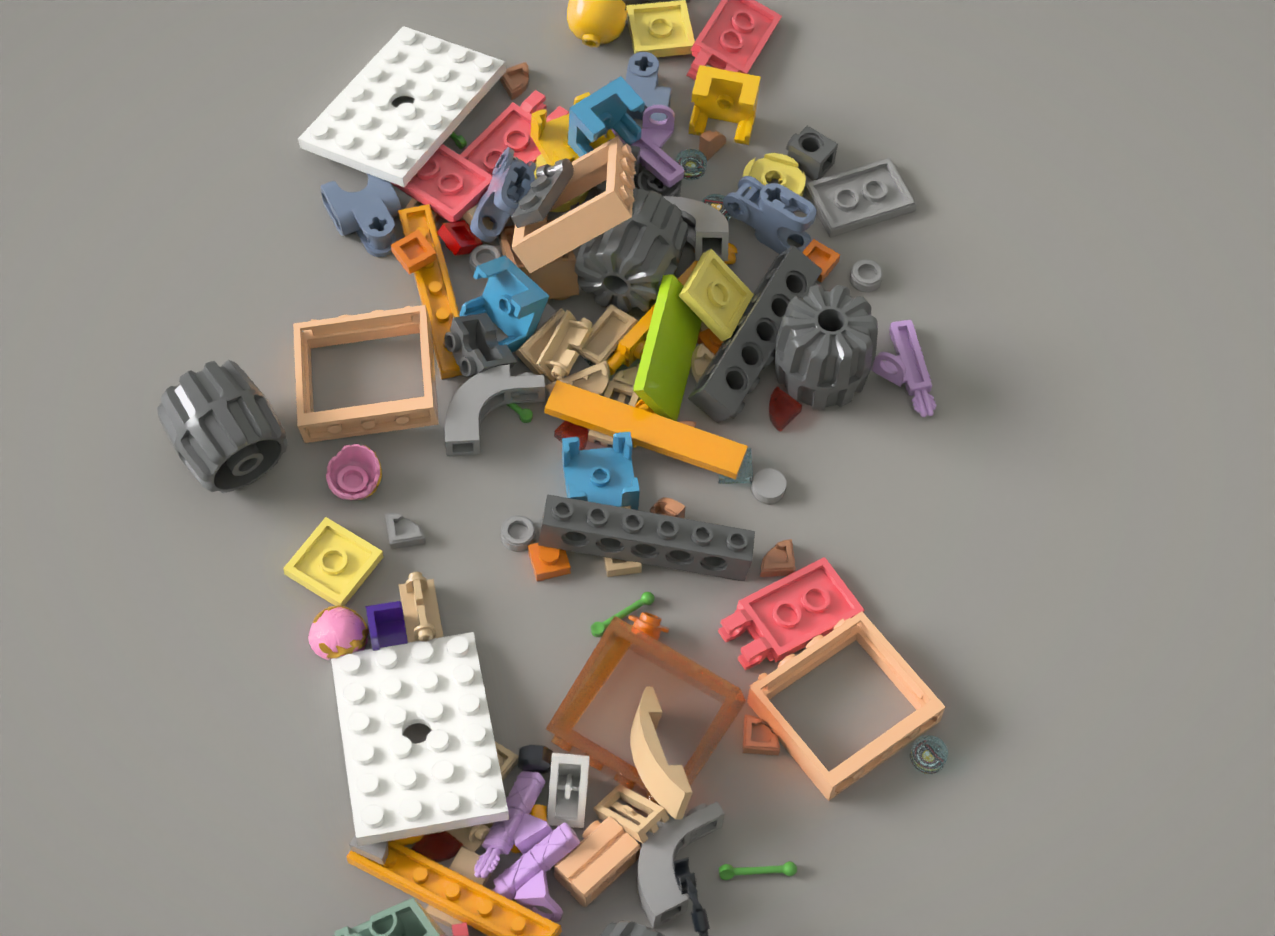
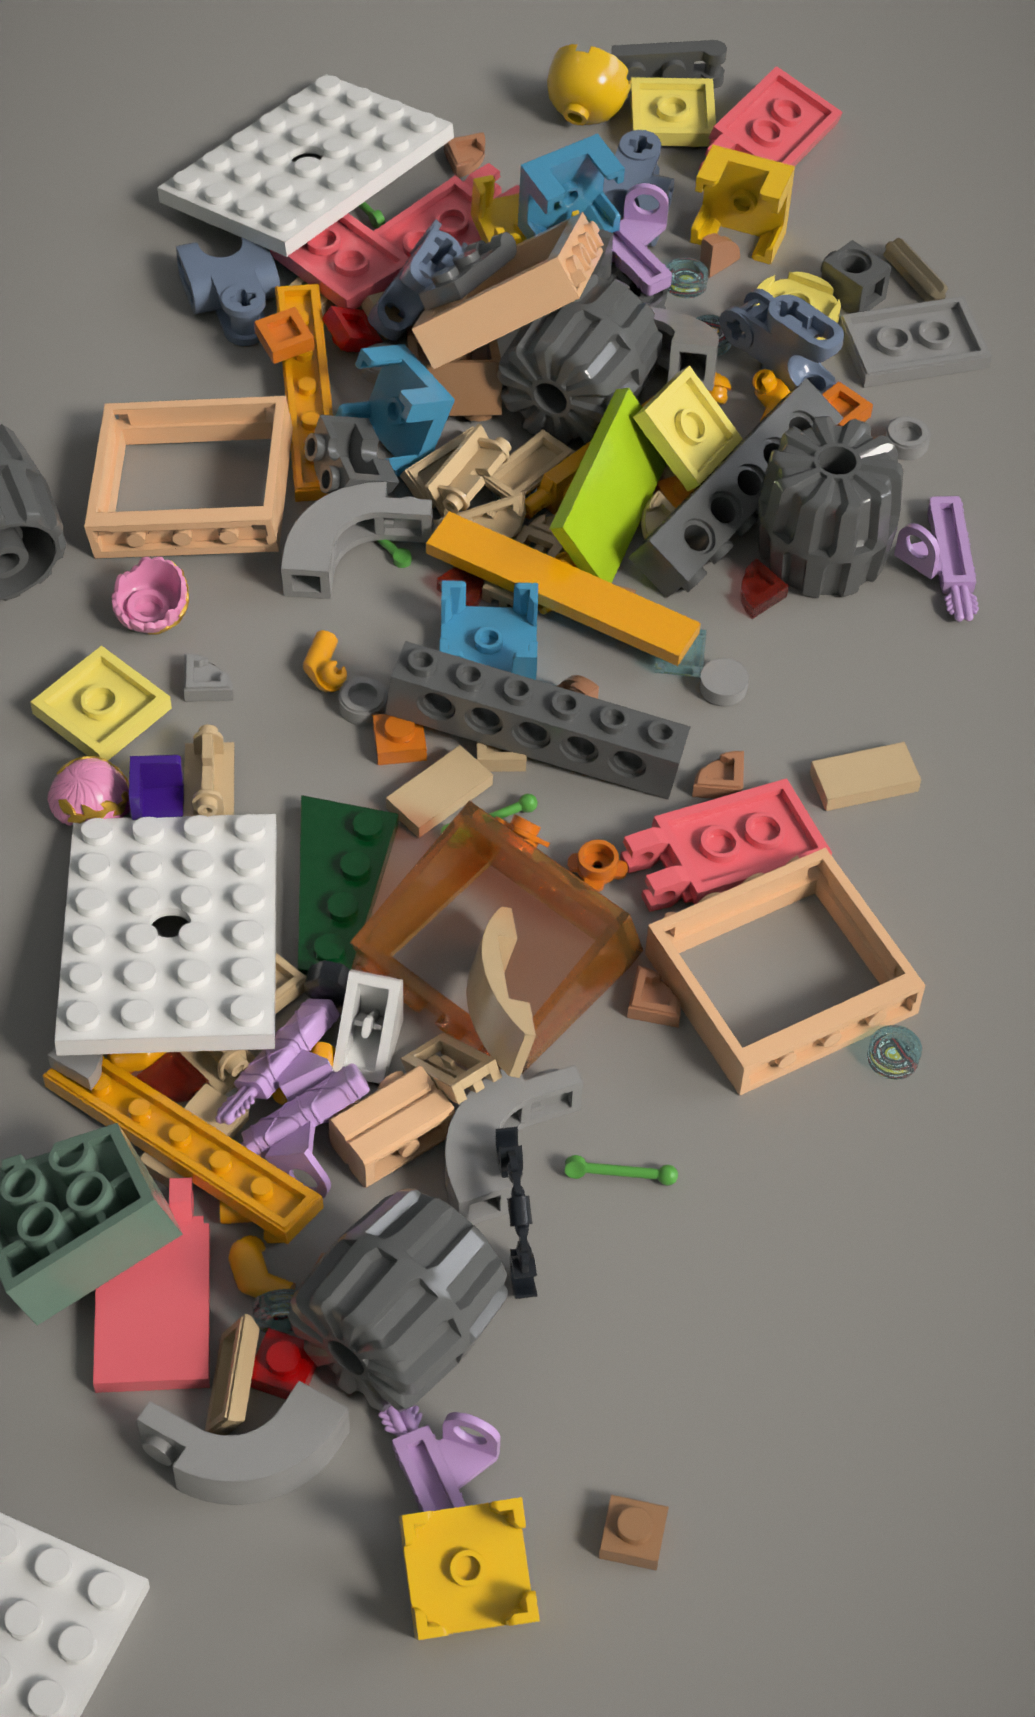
camera: 10 degrees right, 5 degrees down
(483, 511) = (319, 663): none -> light orange arm
(526, 674) = (340, 876): none -> dark green wing
(584, 597) = (439, 791): none -> tan tile
(706, 631) = (597, 853): none -> orange plate
(765, 251) = (769, 389): none -> light orange arm
(852, 140) = (915, 270): none -> dark tan axle
(877, 546) = (865, 776): none -> tan tile

